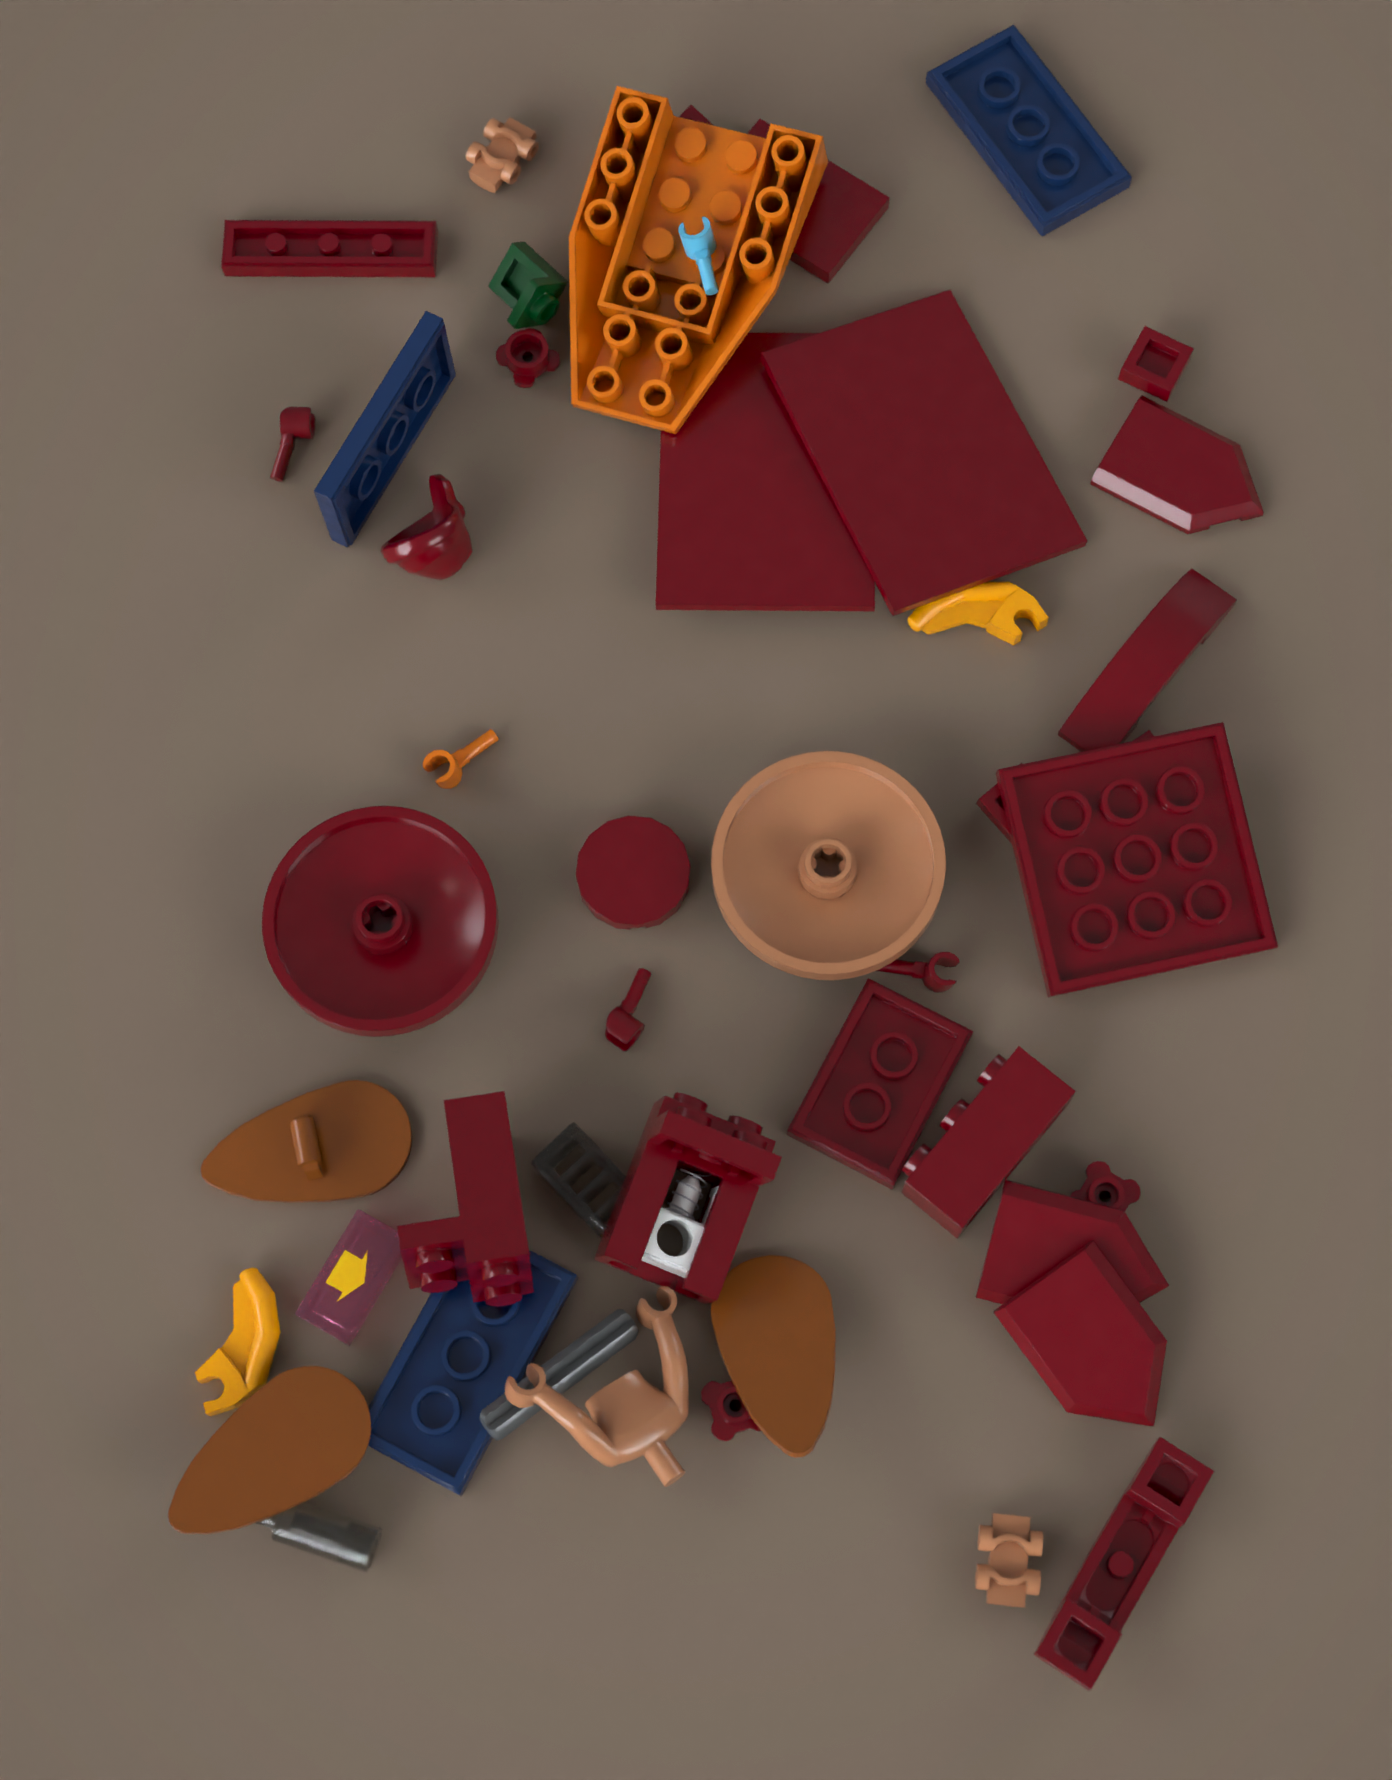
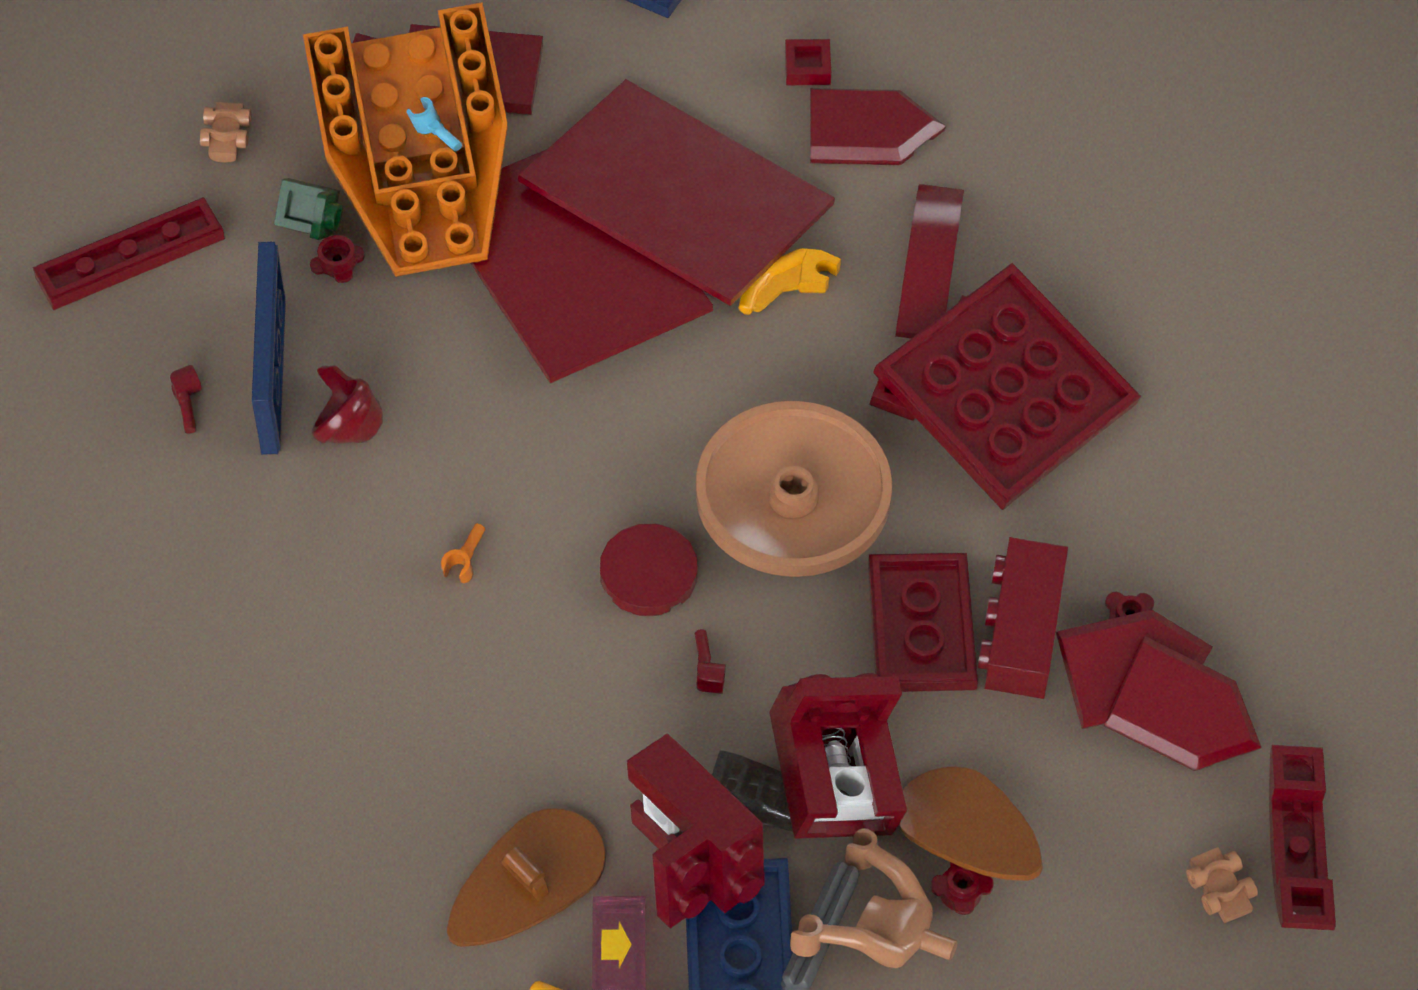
camera: 35 degrees left, 15 degrees down
(380, 921) = (483, 685): dark red dish -> none
(925, 970) = (909, 531): dark red hand -> none

